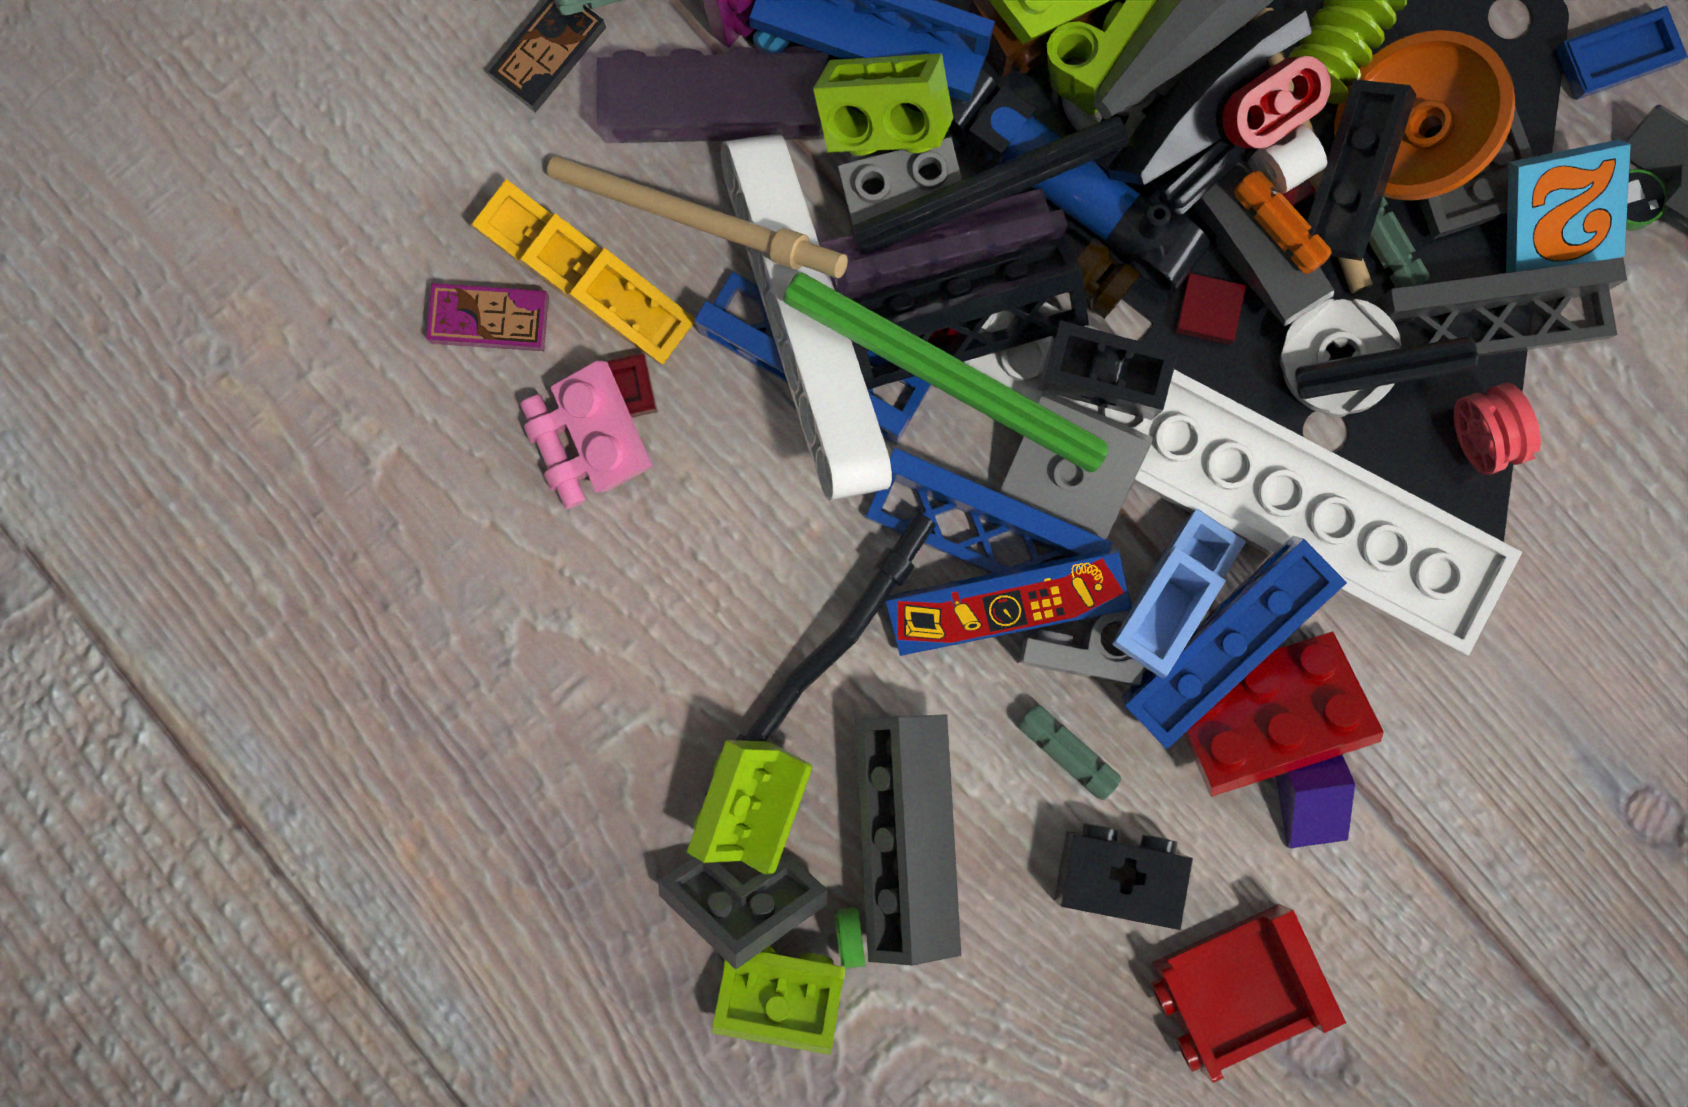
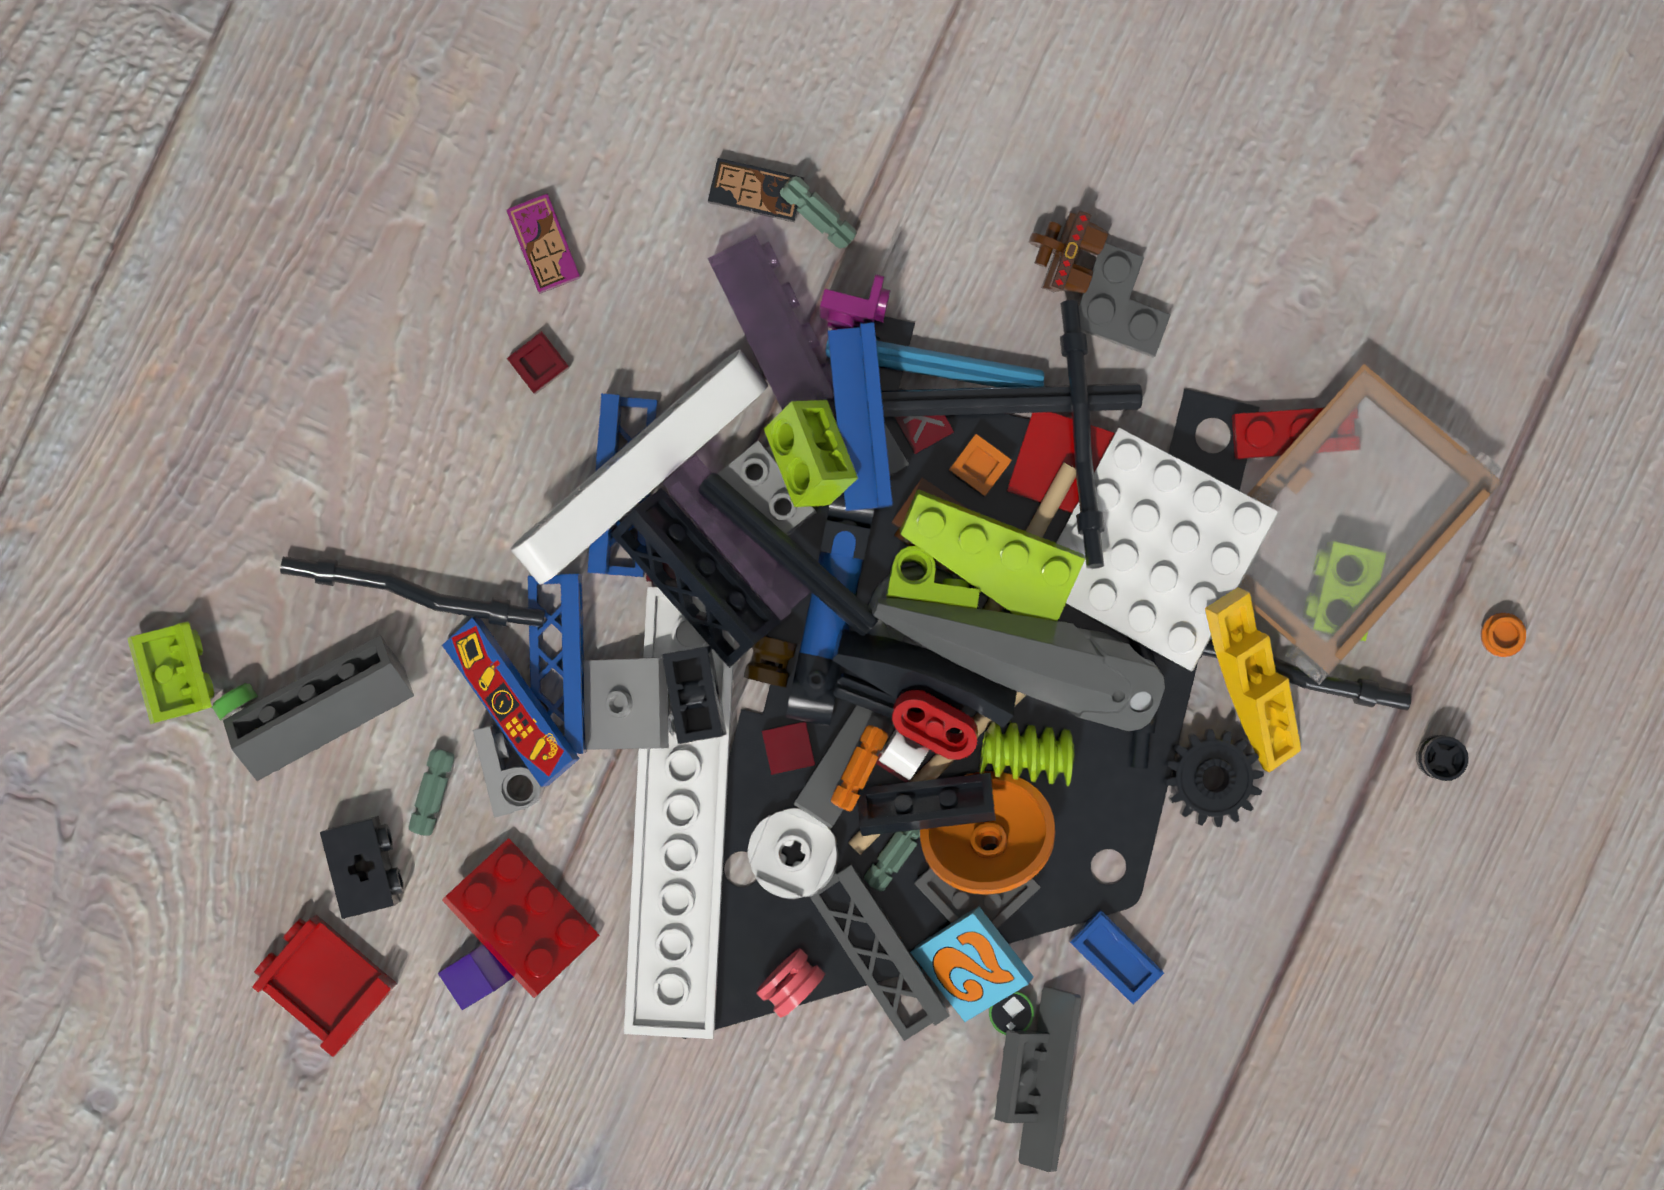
camera: 65 degrees right, 5 degrees up
(583, 272) = (605, 296): yellow slope -> none
(600, 430) = (498, 363): bright pink plate -> none
(739, 917) = (210, 617): dark grey plate -> none
(750, 805) = (288, 591): lime bracket -> none
(783, 246) = (671, 436): tan bar -> none
(945, 372) = (637, 585): bright green axle -> none
(1178, 592) = (567, 814): light blue slope -> none
(1235, 639) = (551, 864): blue fence -> none
(1386, 367) = (791, 885): black axle -> none

